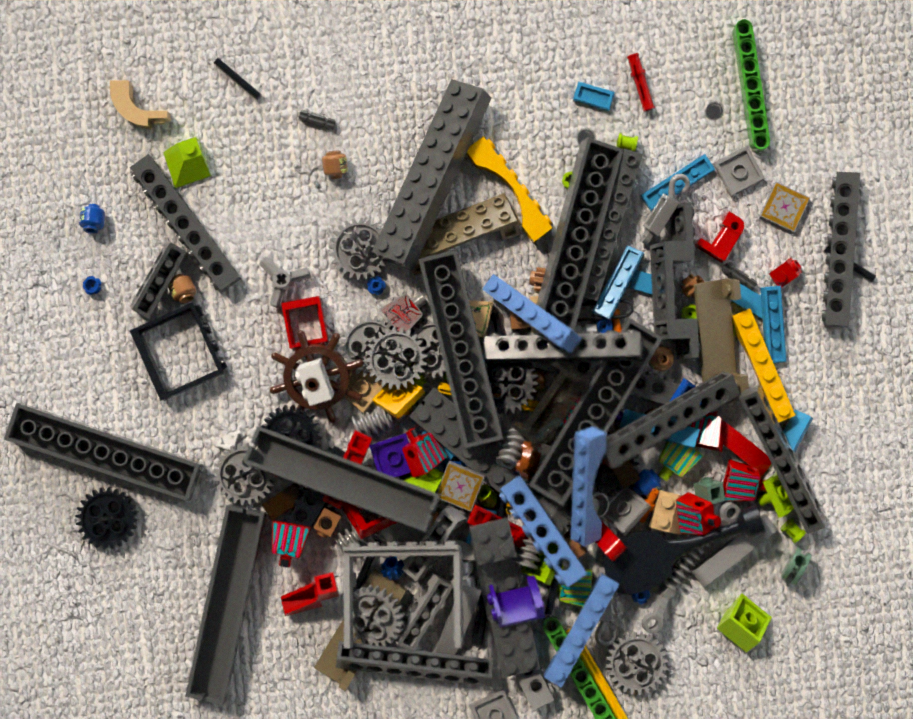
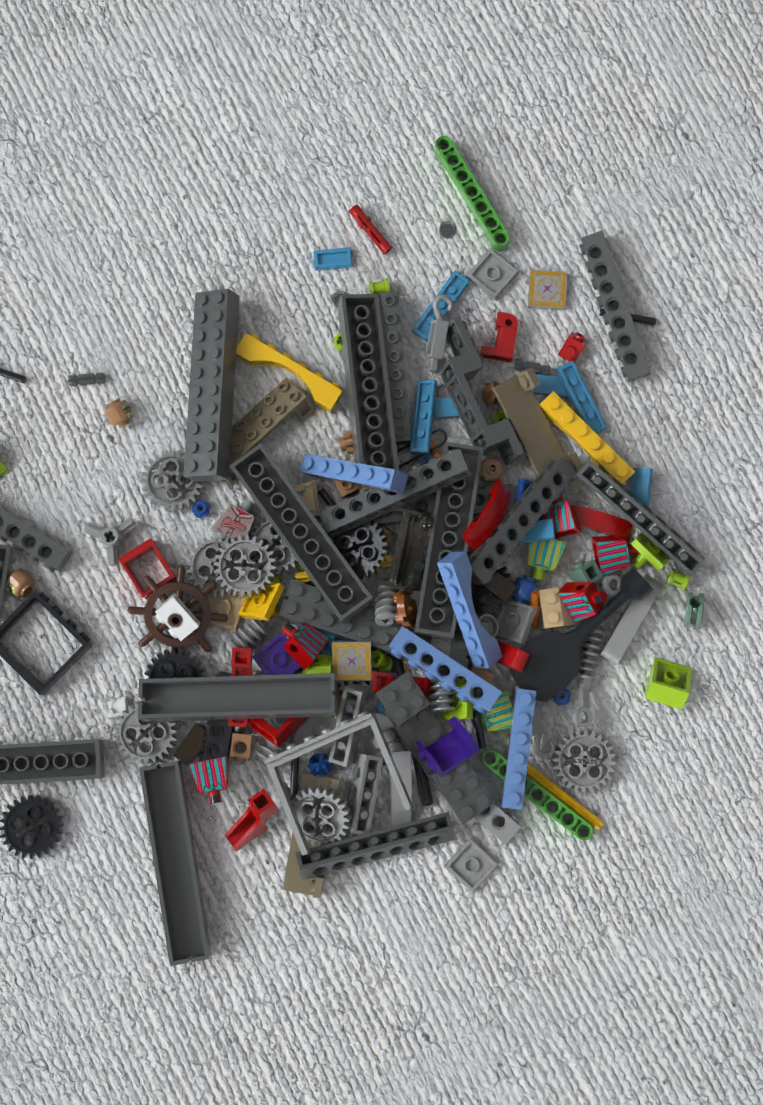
camera: 25 degrees left, 5 degrees down
(643, 406) = (479, 531): none -> red slope

